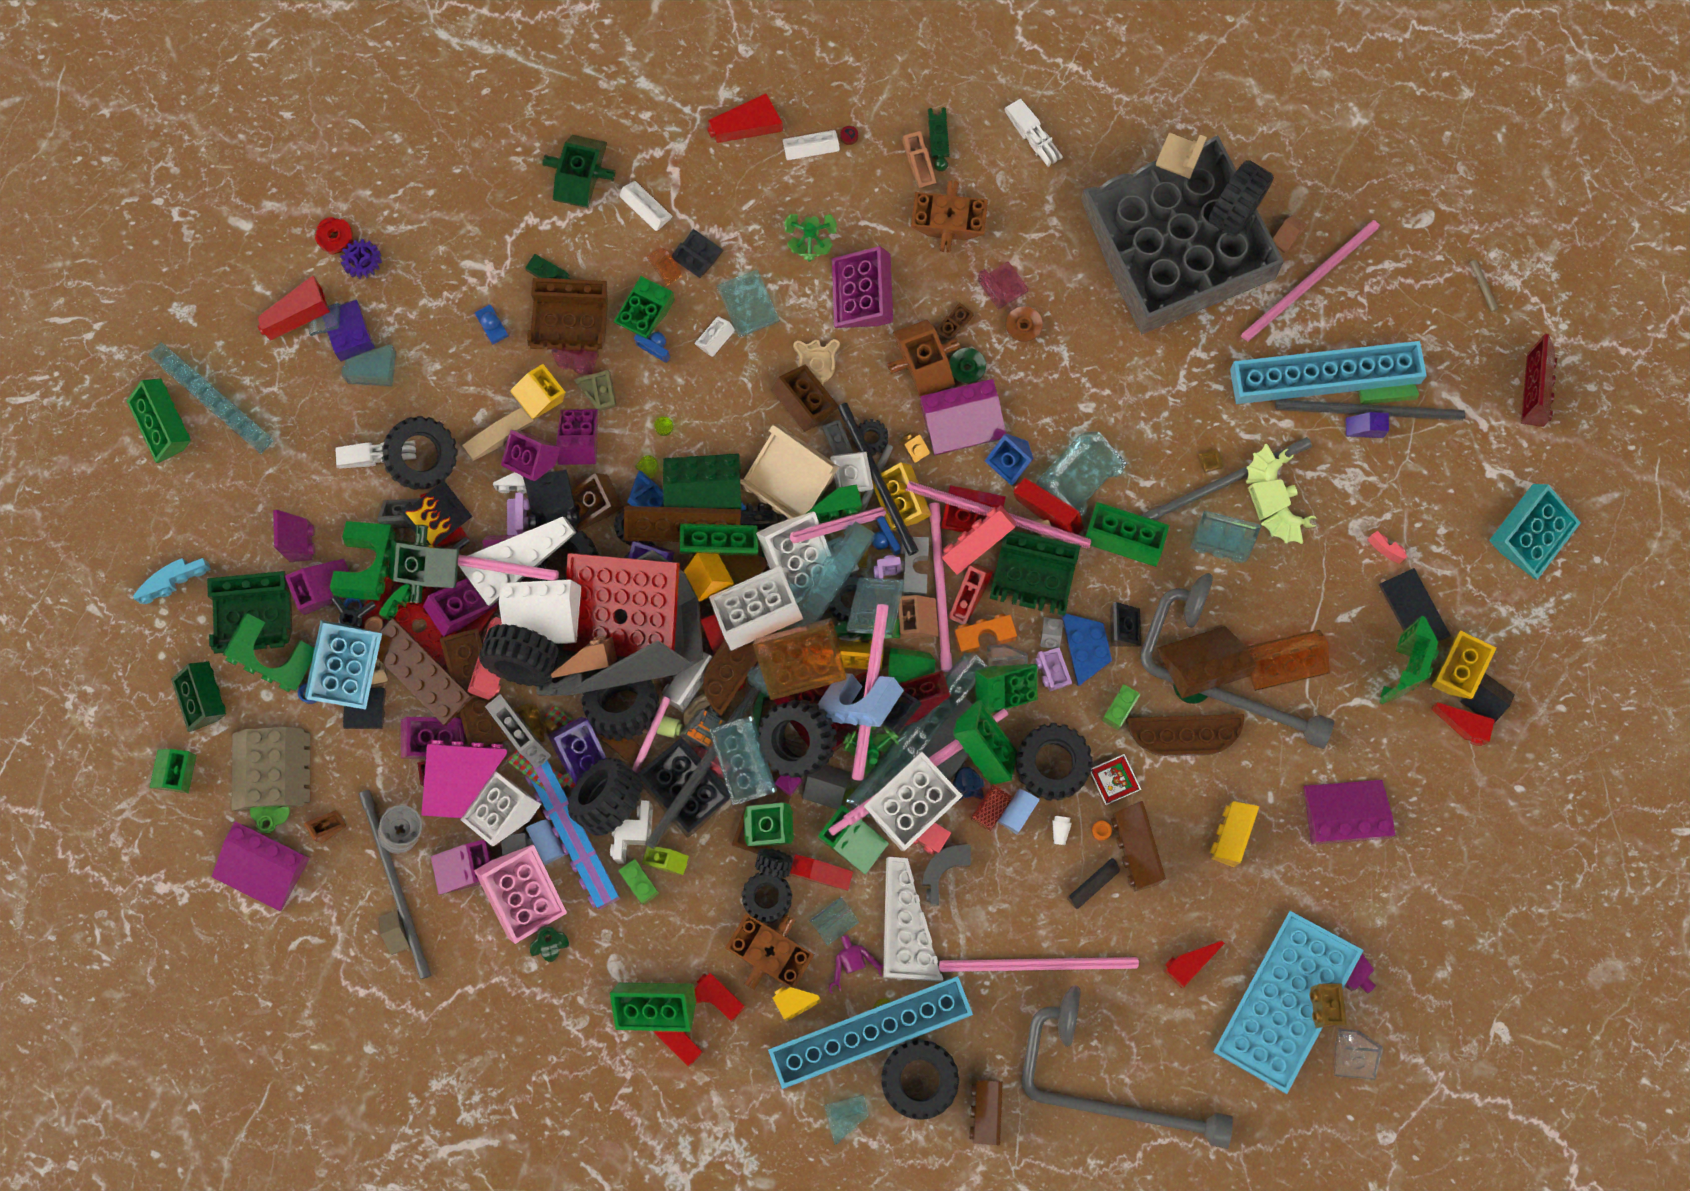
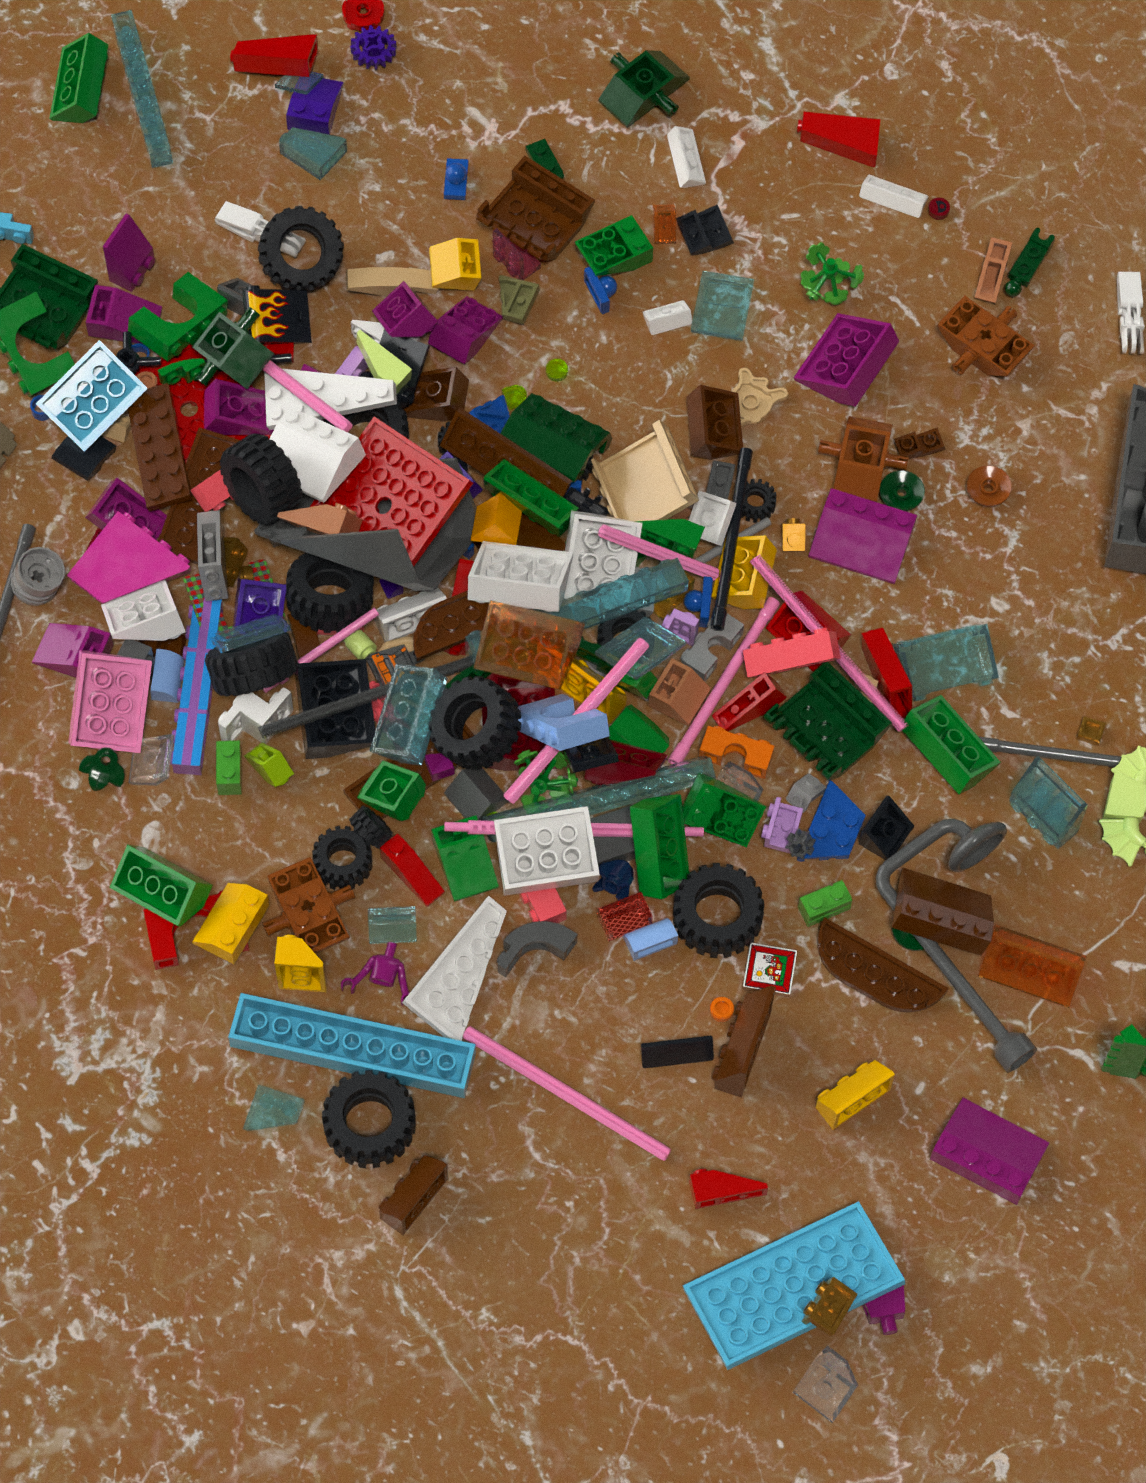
camera: 30 degrees right, 10 degrees down
(542, 505) = (383, 363): none -> yellowish green slope
(580, 914) = (153, 762): none -> clear slope
(589, 775) = (249, 632): none -> clear light blue piece
(723, 1000) = (232, 921): none -> yellow slope
(1002, 285) = (993, 437): clear pink bracket -> none
(1010, 457) = (882, 600): blue slope -> none
(1061, 829) = (680, 980): white cone -> none
(1077, 675) = (798, 849): none -> dark grey gear
(1216, 1128) = (558, 1151): dark grey piece -> none

